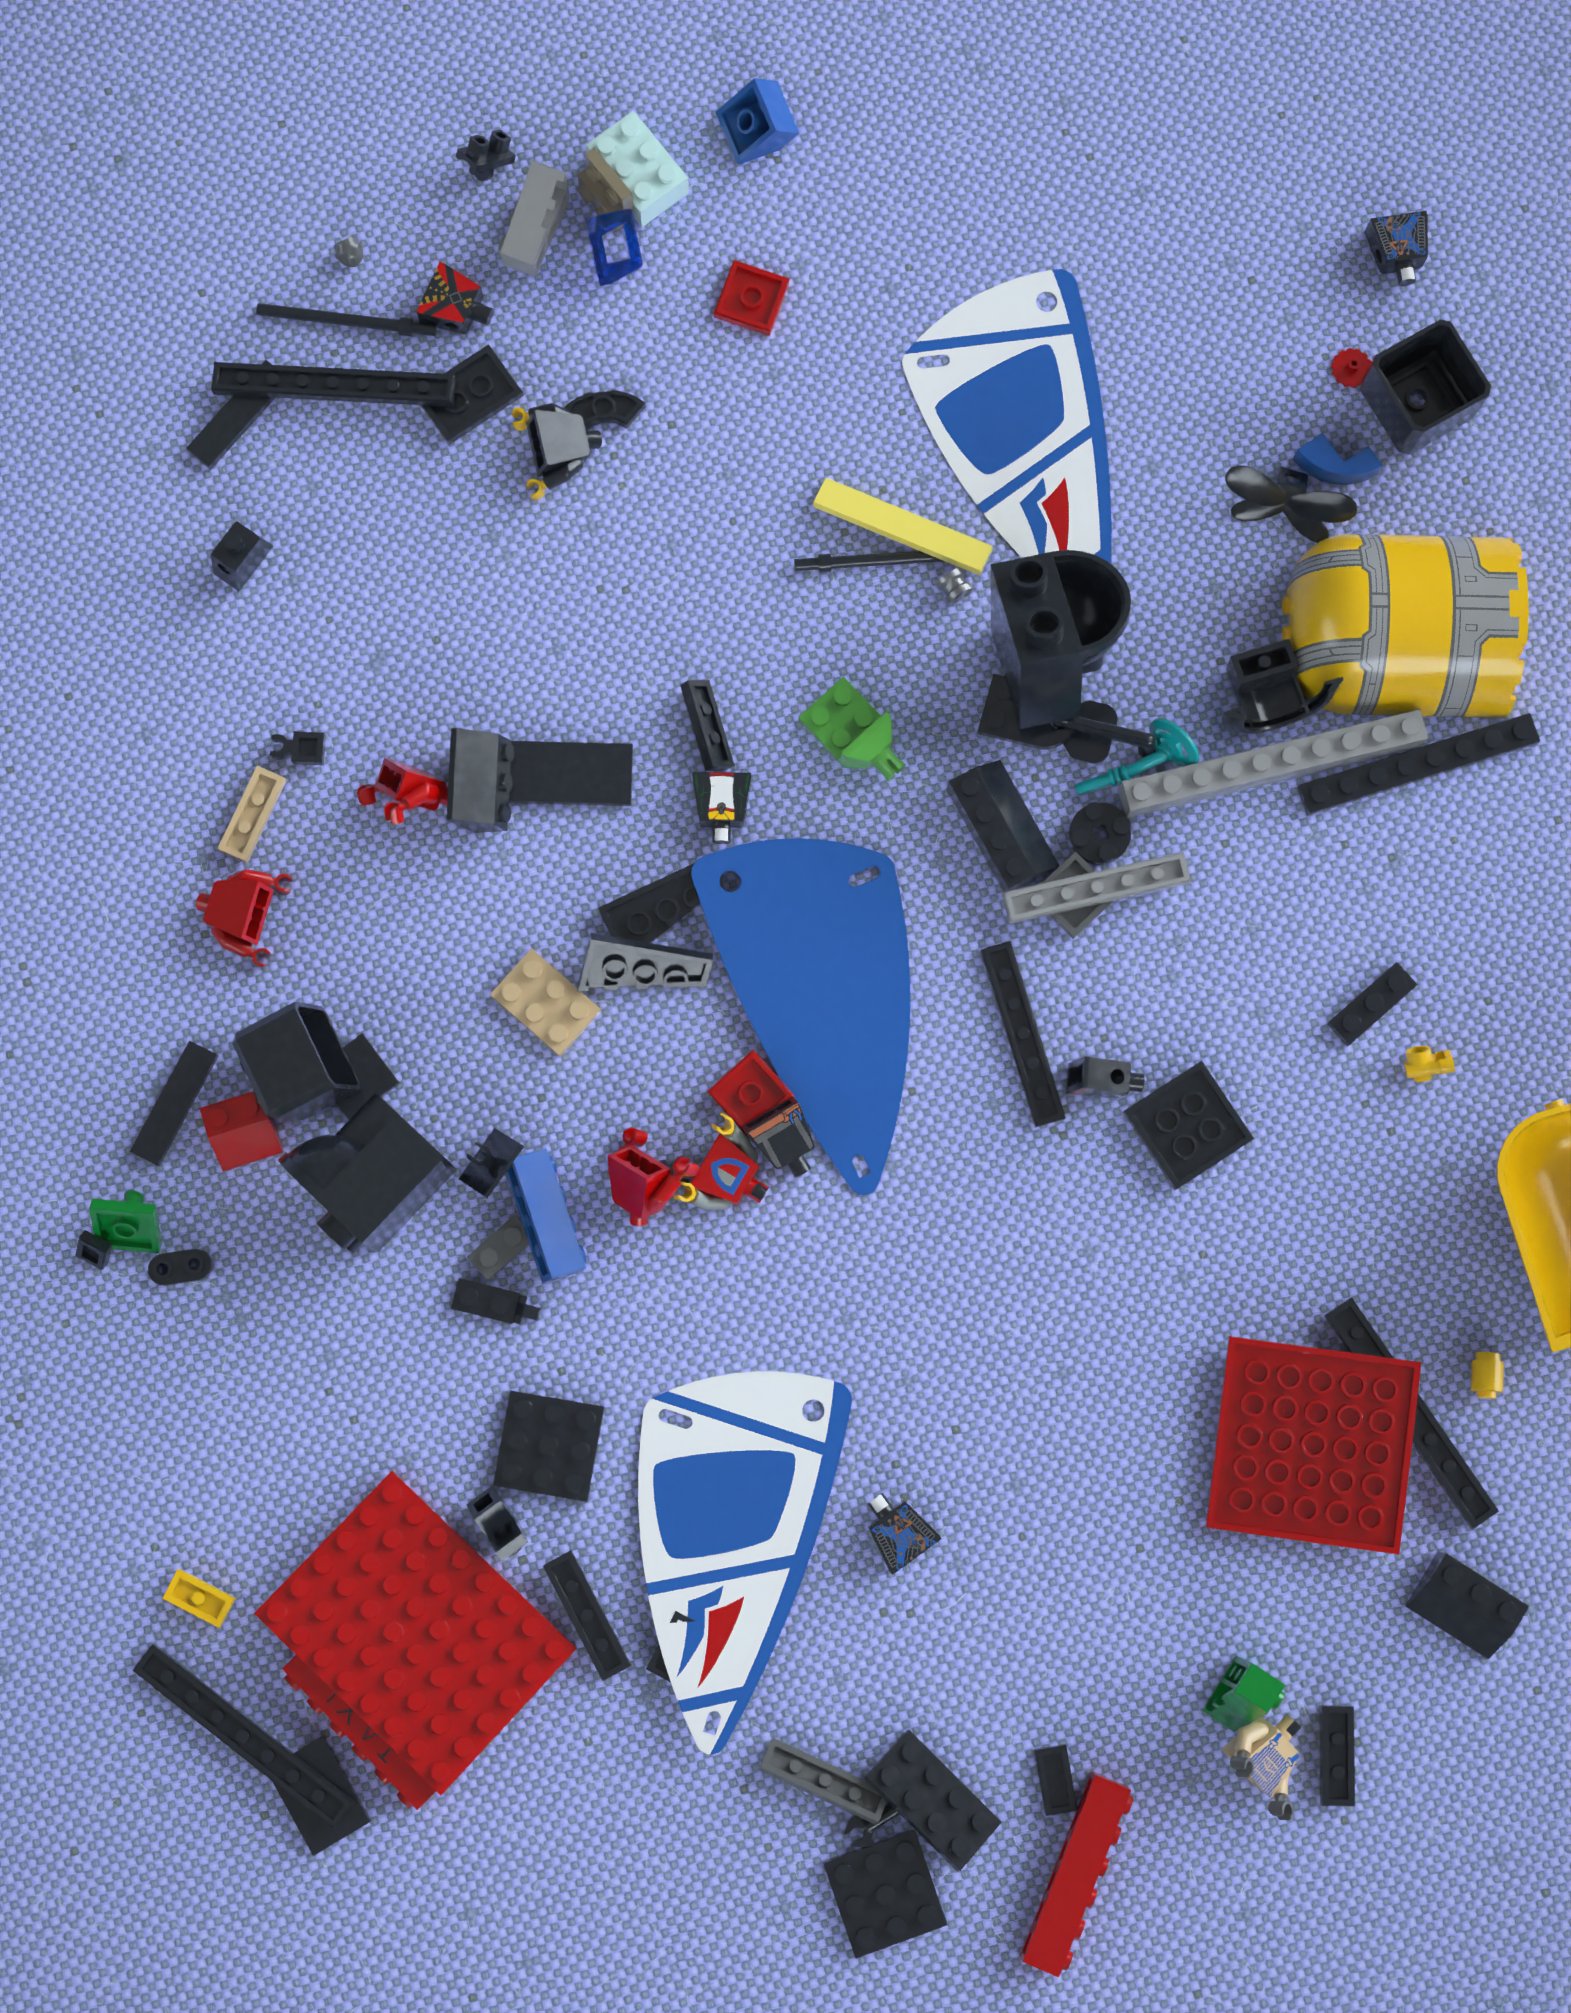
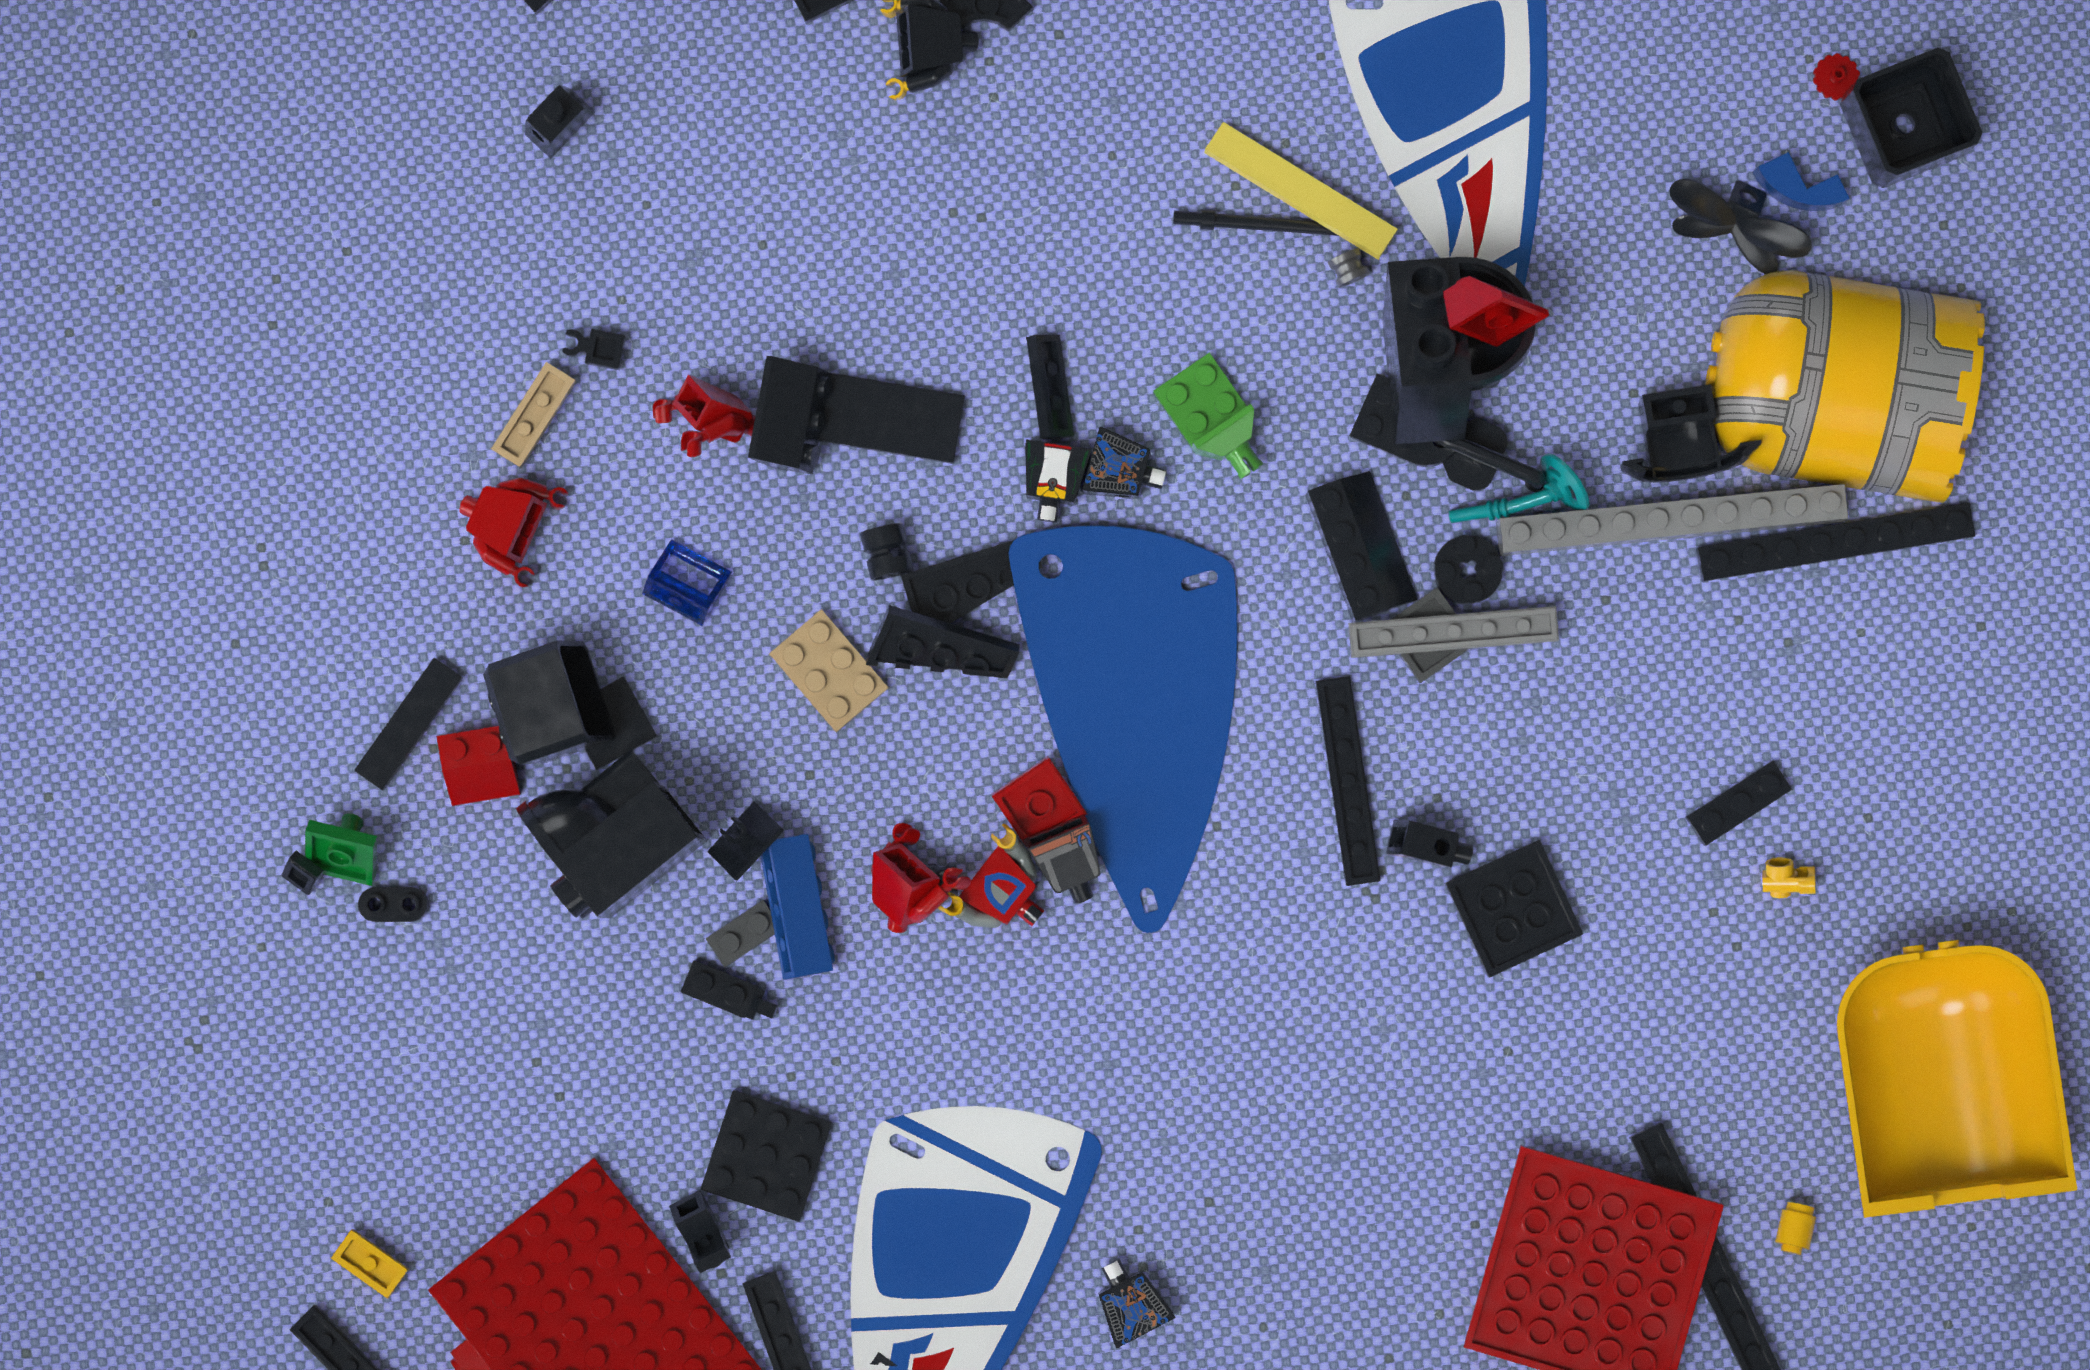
camera: 10 degrees right, 5 degrees up
(402, 953) = (679, 595): none -> clear blue tile
(581, 886) = (886, 551): none -> black wheel
(779, 786) = (1120, 467): none -> torso
(1089, 589) = (1489, 311): none -> red slope

